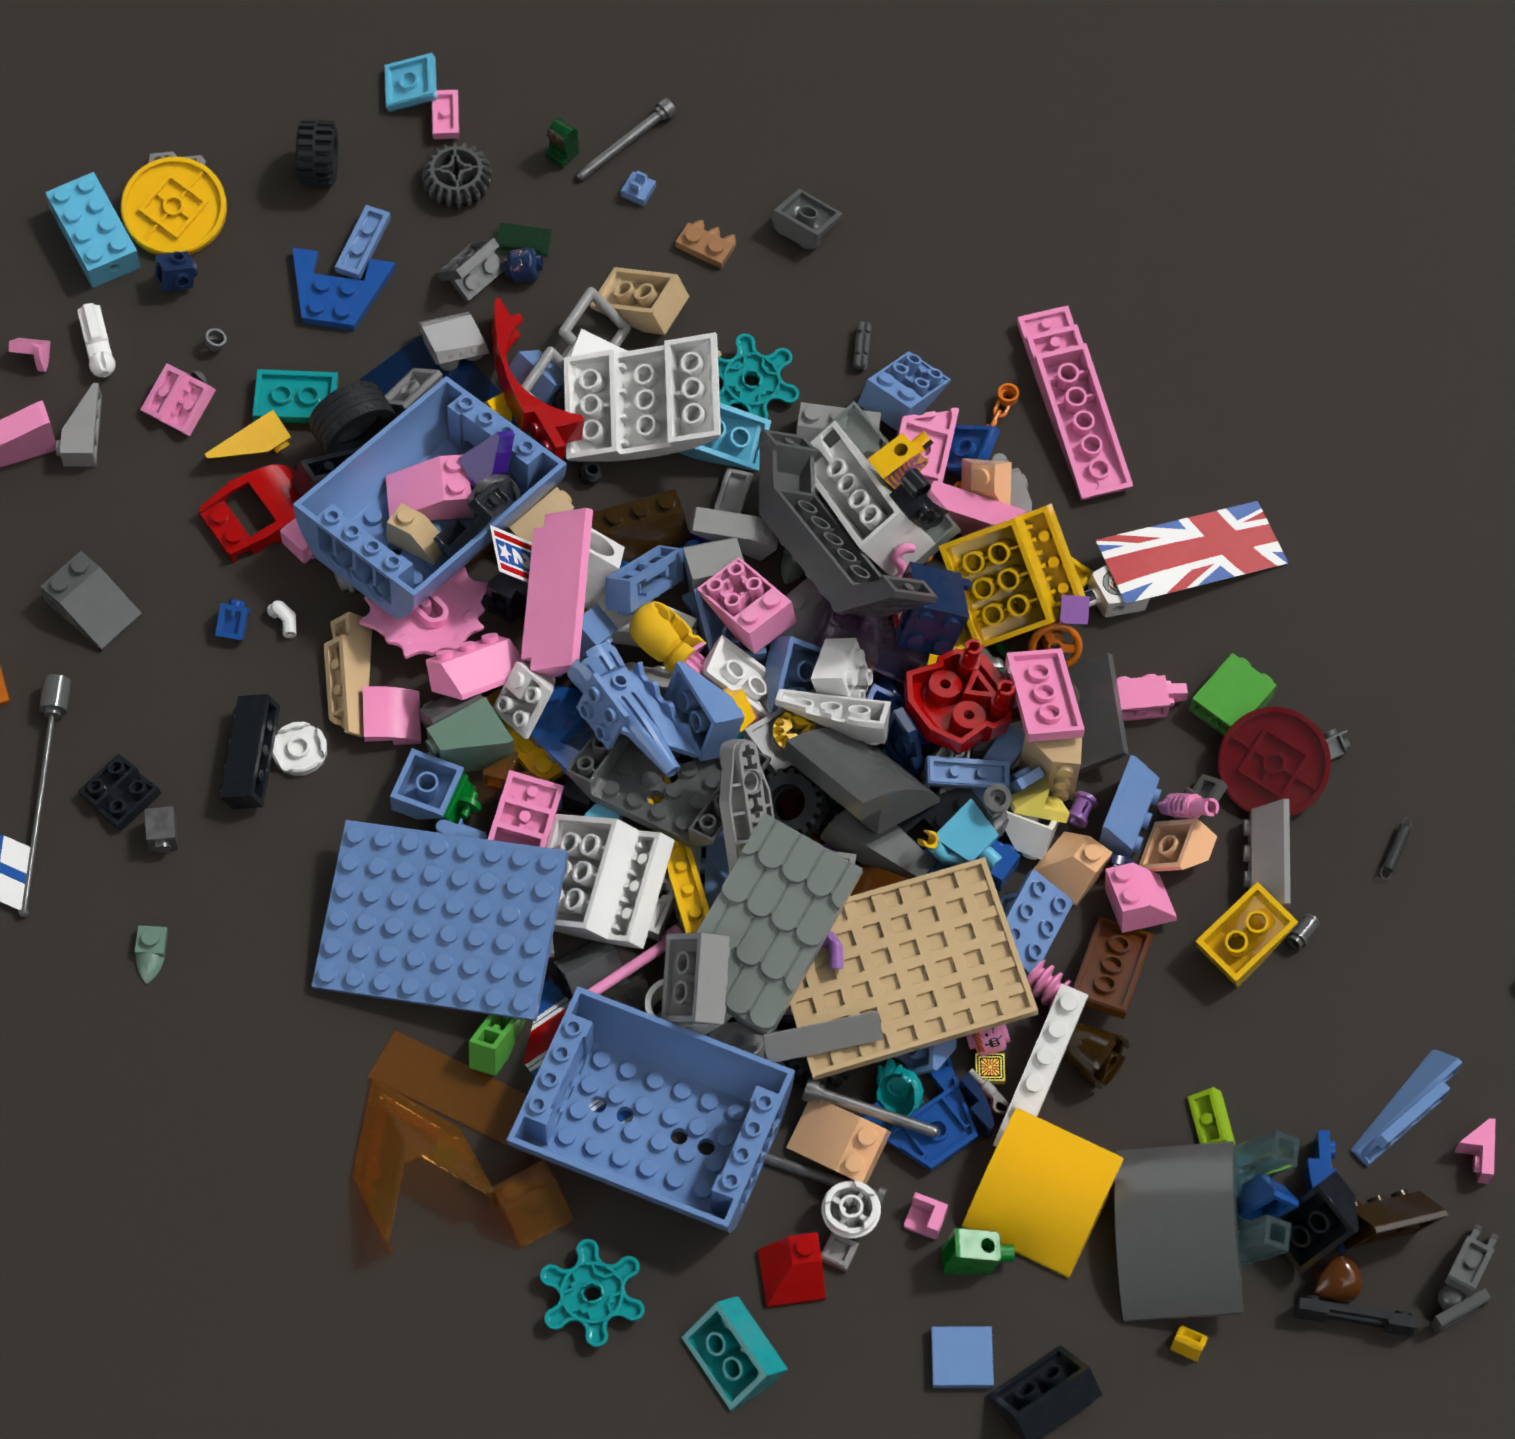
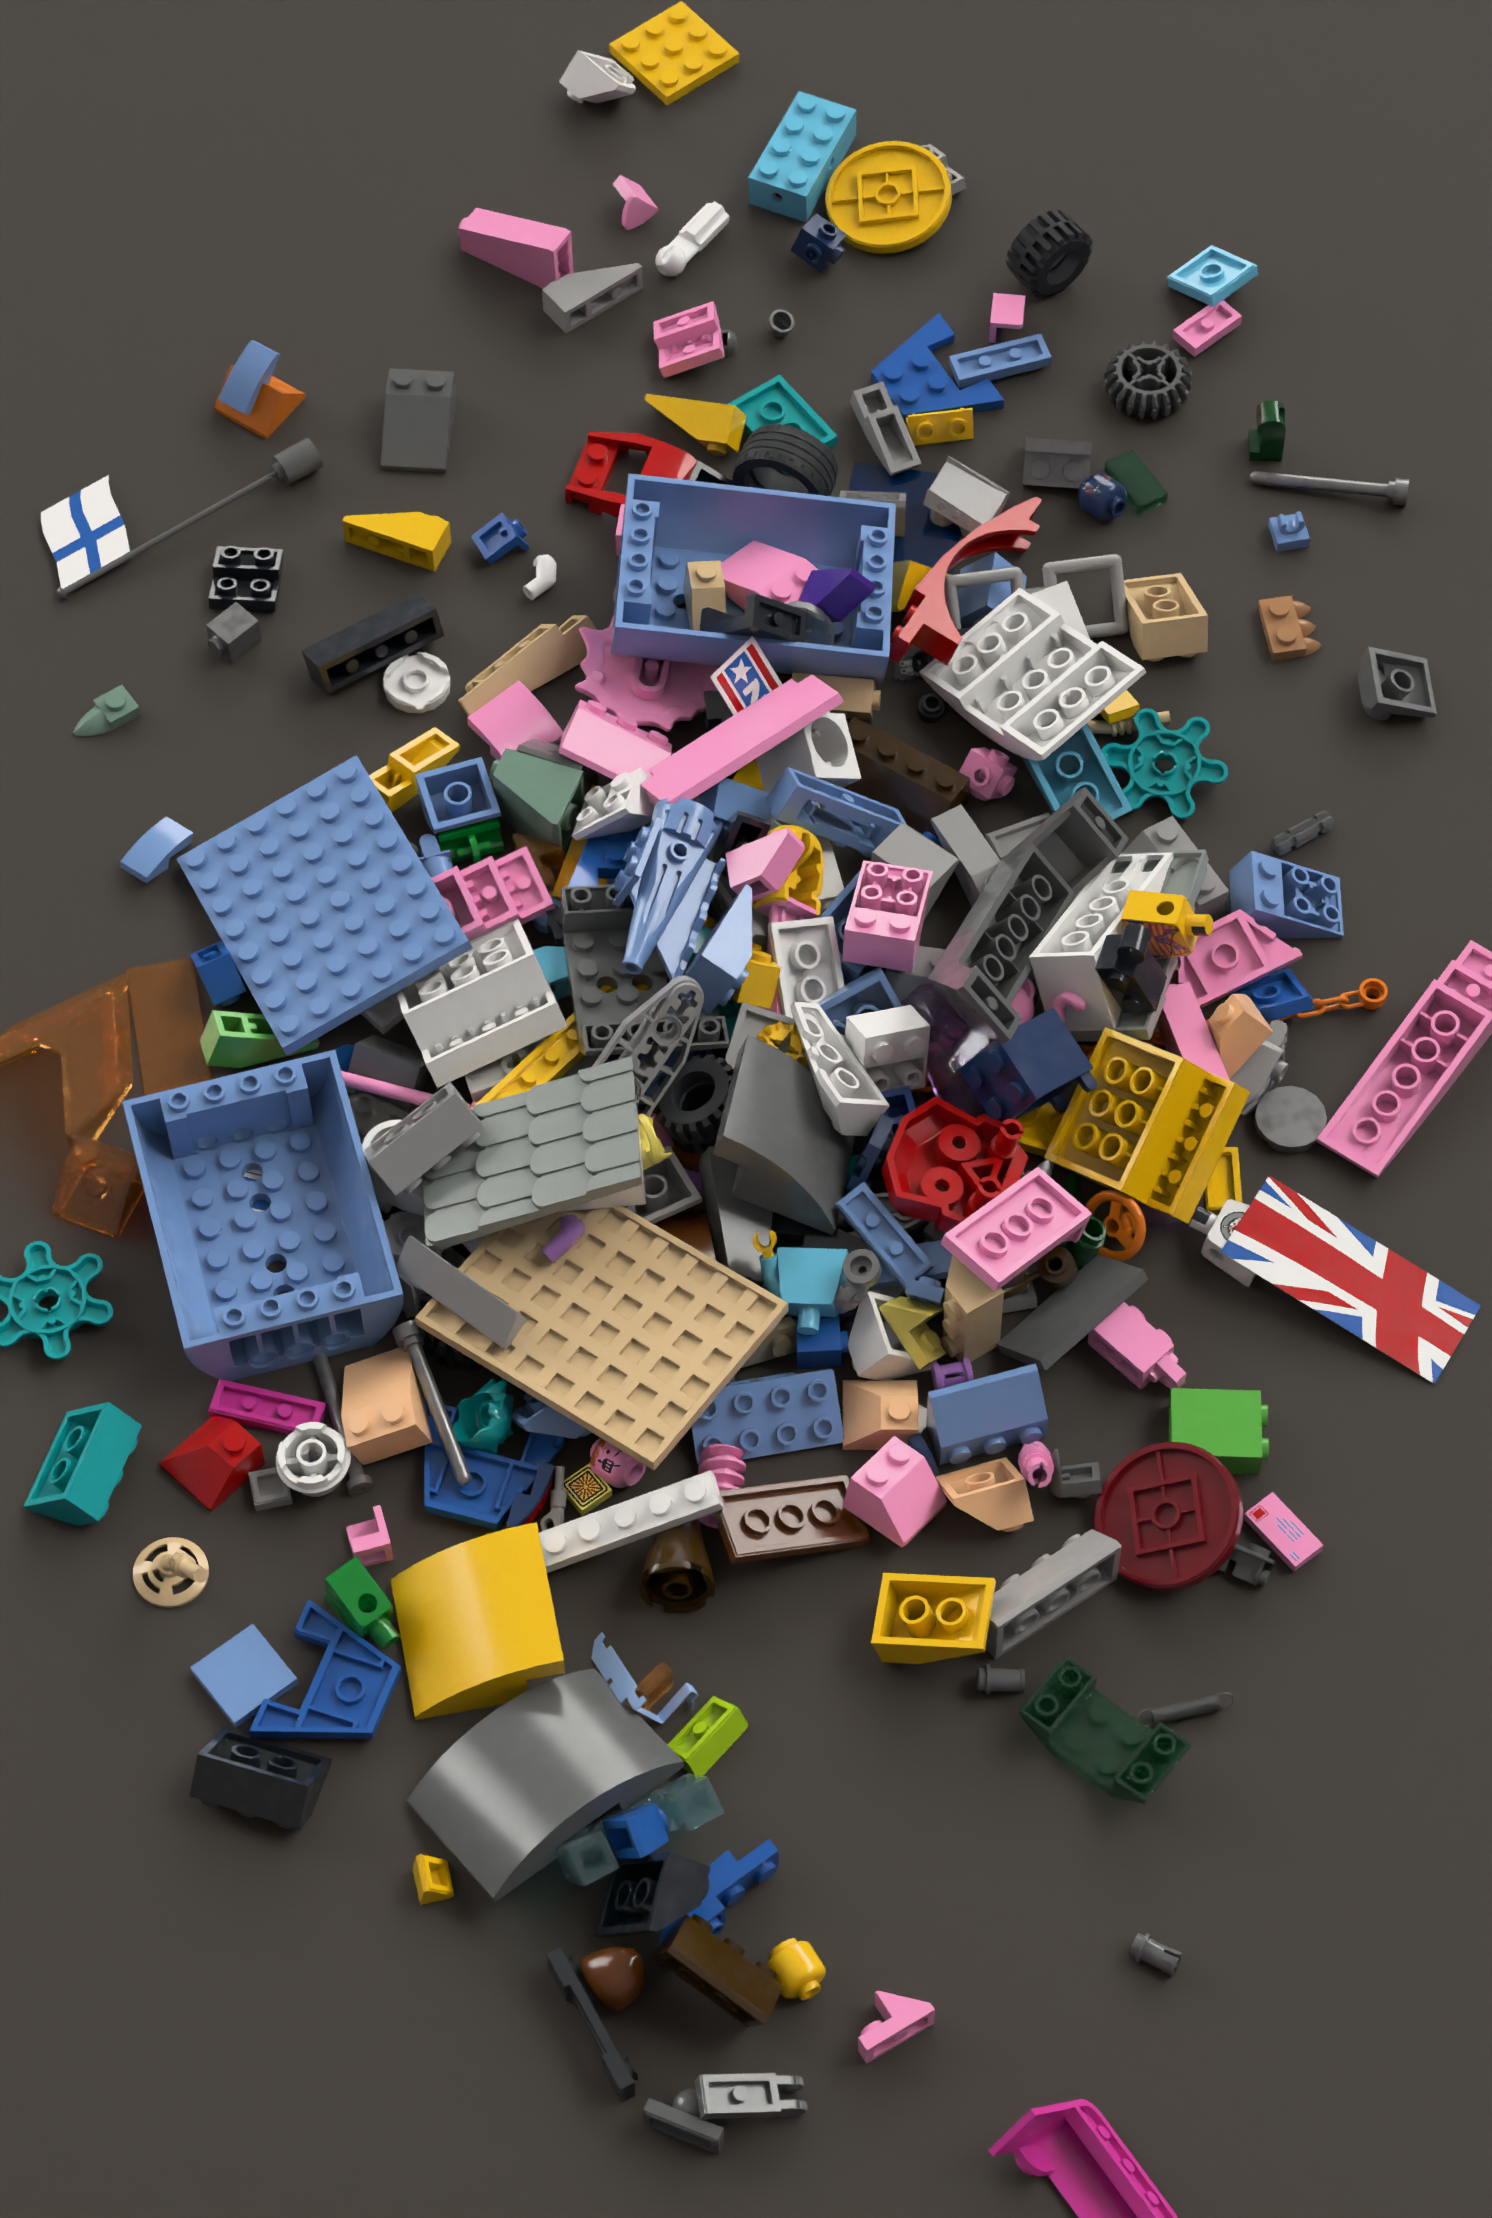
camera: 55 degrees right, 5 degrees down
(181, 672) = (404, 536): none -> yellow slope
(293, 994) = (155, 848): none -> medium blue slope
(332, 212) = (1006, 313): none -> bright pink panel
(356, 343) = (885, 428): none -> light grey slope
(367, 791) = (397, 779): none -> yellow slope
(385, 307) = (940, 426): none -> yellow hinge
(427, 1020) = (218, 974): none -> blue slope
(630, 643) = (736, 831): none -> black slope
(663, 644) = (764, 863): none -> bright pink slope
(674, 475) = (989, 773): none -> bright pink brick
(780, 1214) = (264, 1407): none -> dark pink tile
(856, 1348) = (173, 1568): none -> tan dish
(1022, 1301) = (346, 1692): none -> blue wing
(1062, 495) = (1290, 1119): none -> flat silver tile
(1074, 609) = (1158, 1202): medium lavender slope -> none
(1145, 1139) = (624, 1686): none -> light blue piece
(1160, 1124) = (655, 1685): none -> clear orange tile
(1326, 711) = (1283, 1532): none -> bright pink tile
(1389, 904) = (1099, 1736): none -> clear green slope
(1407, 1175) = (797, 1969): none -> yellow head
(1411, 1104) = (885, 1922): medium blue wedge -> none

